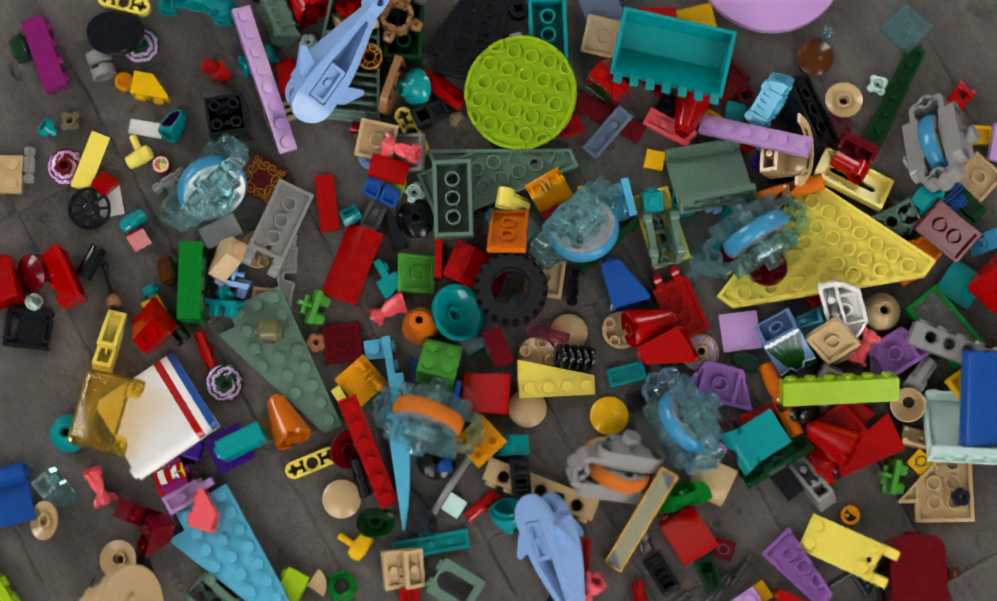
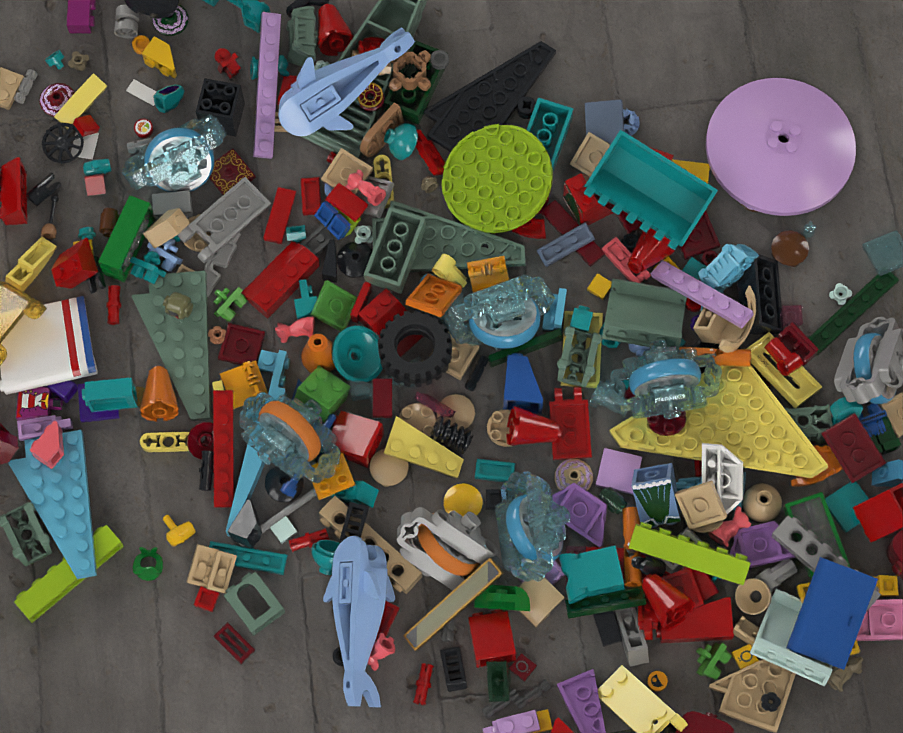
camera: 25 degrees right, 10 degrees down
(140, 155) = (128, 112): light yellow piece -> none
(214, 381) = (128, 343): dish -> none
(318, 582) = (128, 553): tan tile -> none
(341, 499) = (181, 484): tan dish -> none
(348, 172) = (310, 195): none -> red tile
(375, 523) = (203, 517): dark green dish -> none
(429, 114) = (403, 169): black brick -> none
(669, 347) = (542, 457): red slope -> none
(847, 93) = (805, 289): tan dish -> none

